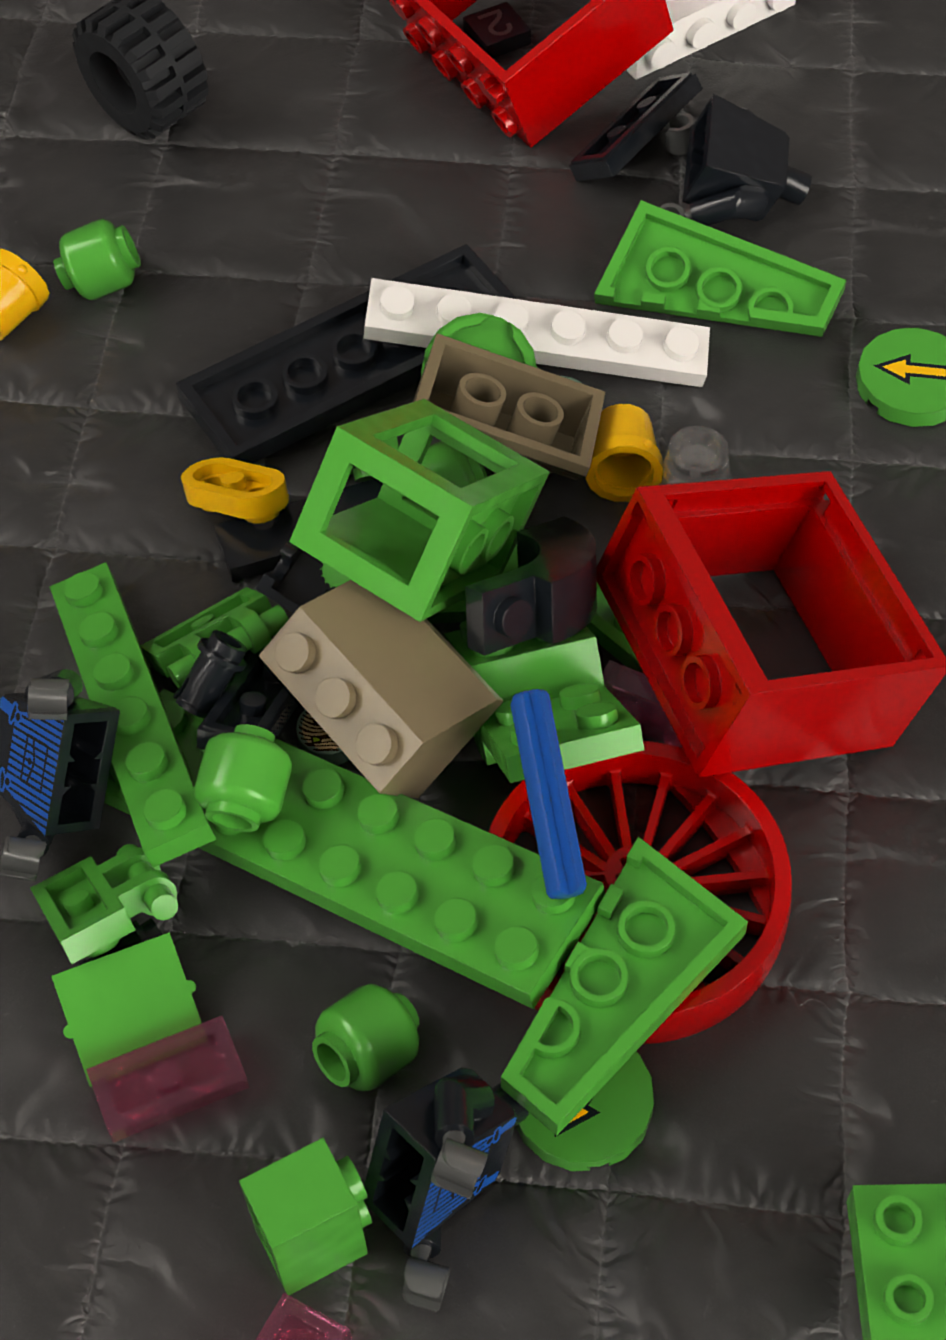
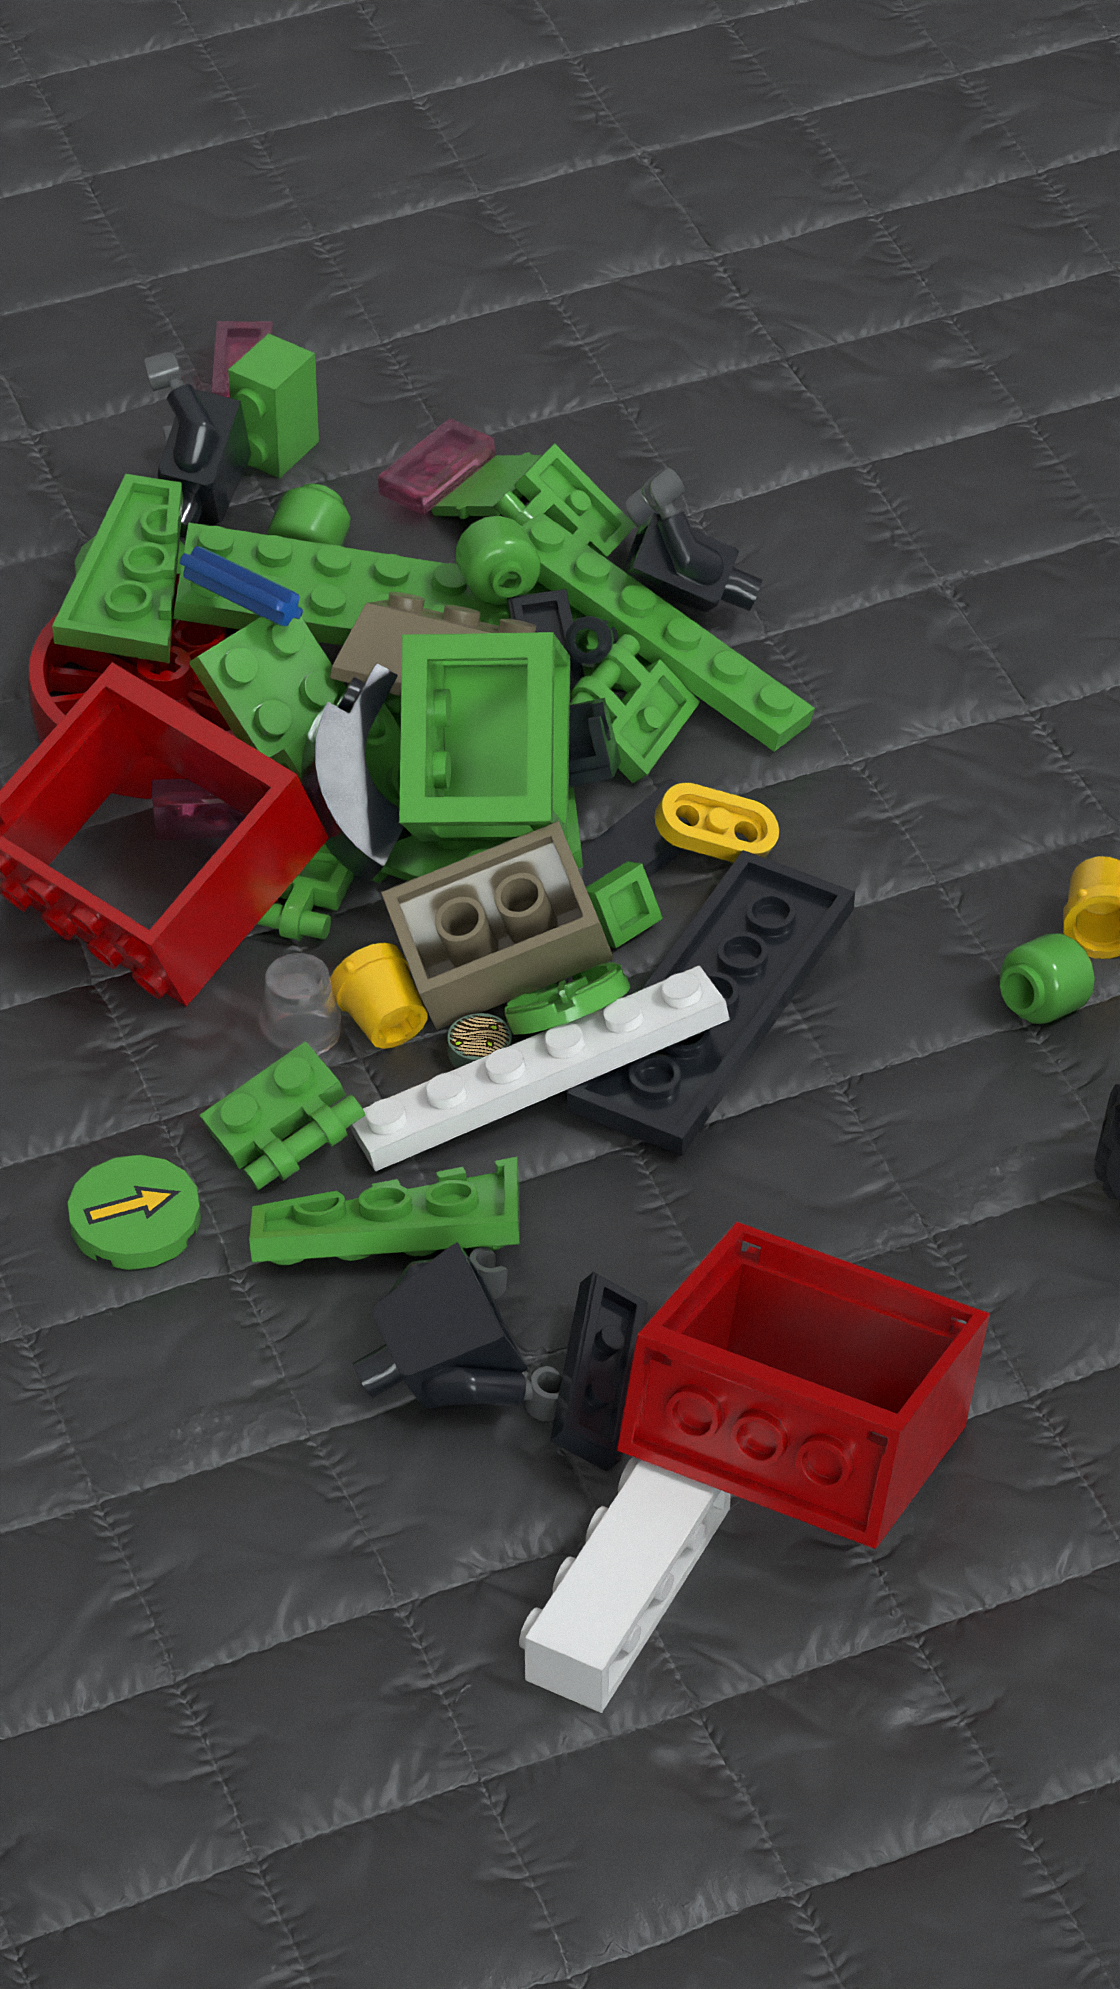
camera: 150 degrees right, 10 degrees down
(760, 400) = (274, 1106): none -> bright green plate

